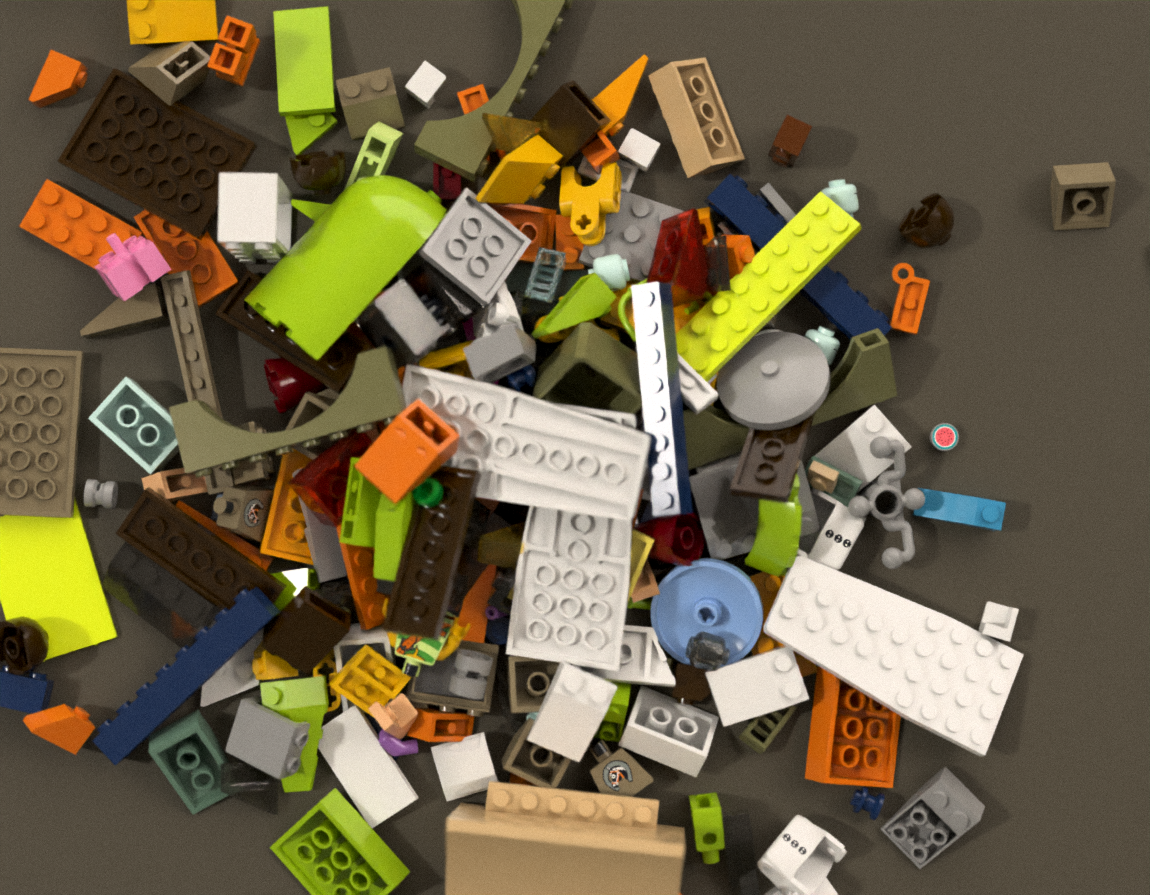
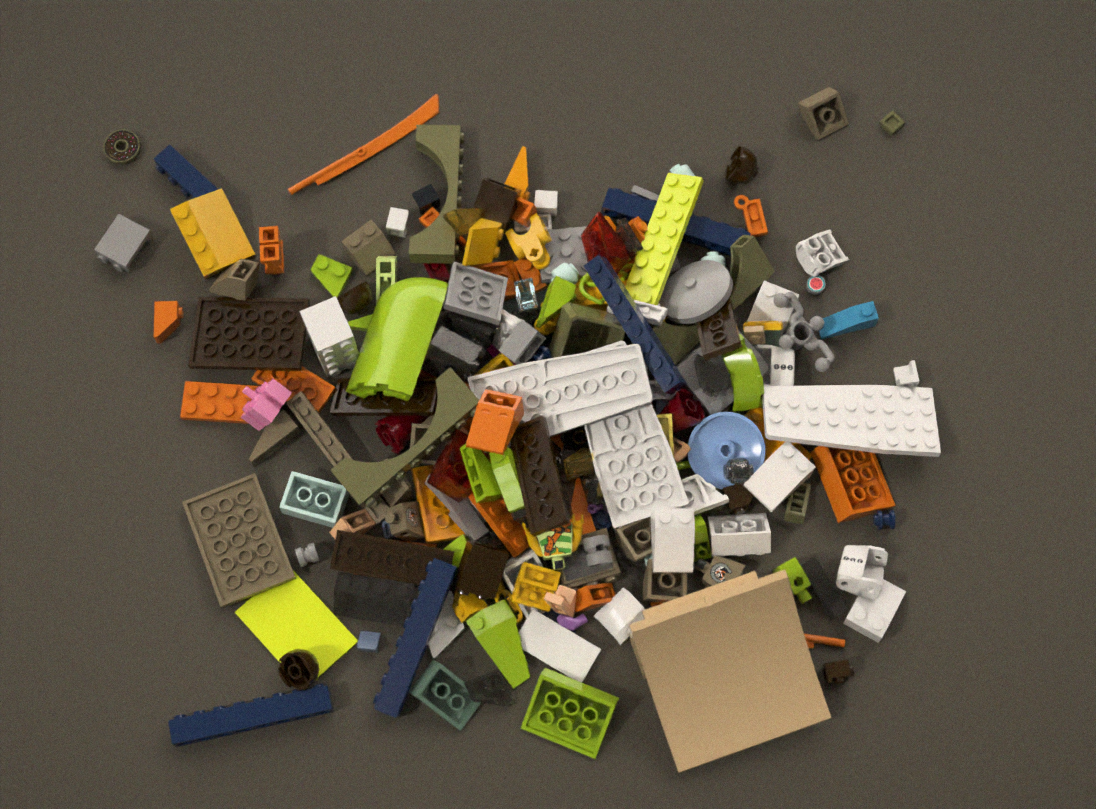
camera: 25 degrees left, 15 degrees down
(61, 726) = (350, 709): orange slope -> none
(129, 644) = (368, 641): none -> sand blue slope
(267, 739) = (487, 652): light grey panel -> none
(304, 61) = (316, 241): lime tile -> none
(428, 493) = (518, 443): green tile -> none
(479, 68) = (426, 198): none -> black panel
(696, 116) = (570, 169): tan slope -> none
(789, 141) = (634, 156): reddish brown brick -> none
(847, 469) = (768, 325): none -> yellow tile
(933, 818) = (930, 511): light grey slope -> none
(971, 397) = (820, 253): none -> white slope

